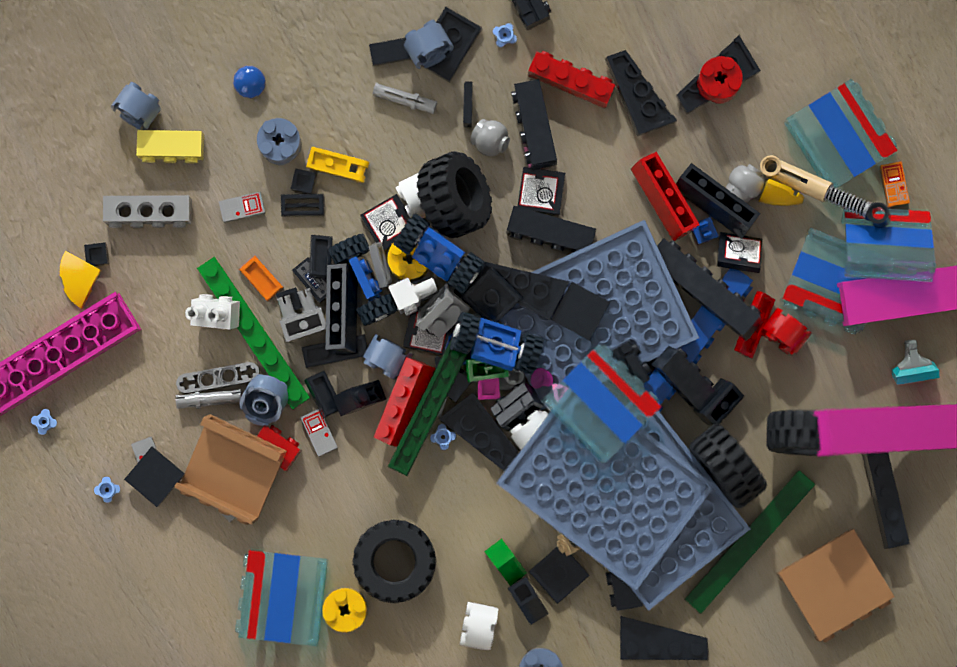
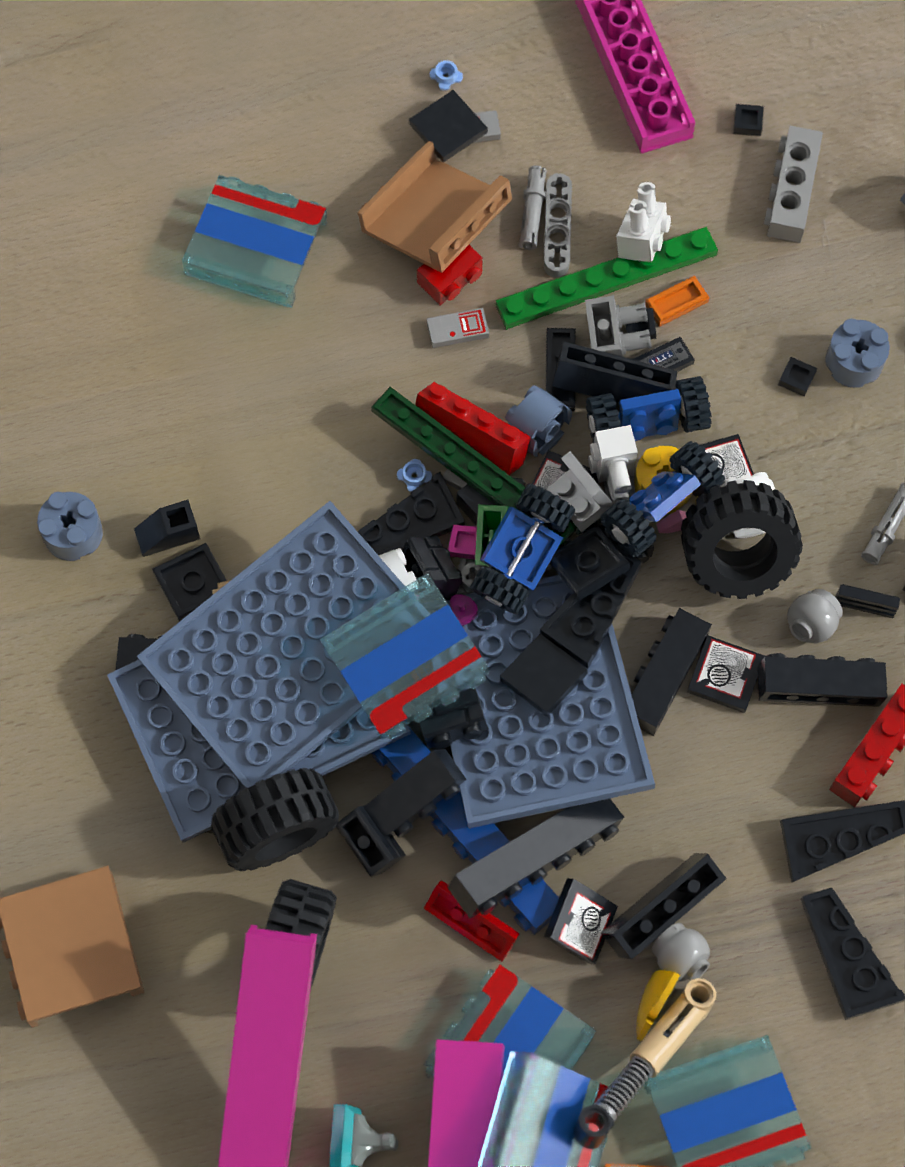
camera: 100 degrees right, 15 degrees down
(44, 415) = (548, 29): light blue plate -> none
(77, 278) = (721, 93): yellow brick -> none
(170, 146) = (874, 226): light yellow brick -> none
(242, 207) = (777, 297): light grey tile -> none
(264, 399) = (515, 262): sand blue brick -> none
(319, 256) = (690, 367): black tile -> none
(320, 205) = (762, 390): black tile -> none
(322, 393) = (506, 341): black tile -> none
(332, 610) = (218, 306): yellow brick -> none
(336, 164) = (813, 419): yellow plate -> none
(359, 397) = (491, 381): black slope -> none
(364, 561) = (260, 341): black tyre -> none
(380, 264) = (667, 436): light grey tile -> none
(479, 626) = (149, 458): white brick -> none
(506, 562) = (225, 516): green slope -> none
(654, 642) = (62, 688): black wing -> none
(665, 196) = (684, 834): red brick -> none
(705, 231) = (624, 884): blue tile -> none
(724, 68) = (855, 934): red brick -> none
(749, 542) = (166, 845): dark green tile -> none
(785, 331) = (449, 957): red brick -> none
(886, 500) = (164, 1048): black brick -> none

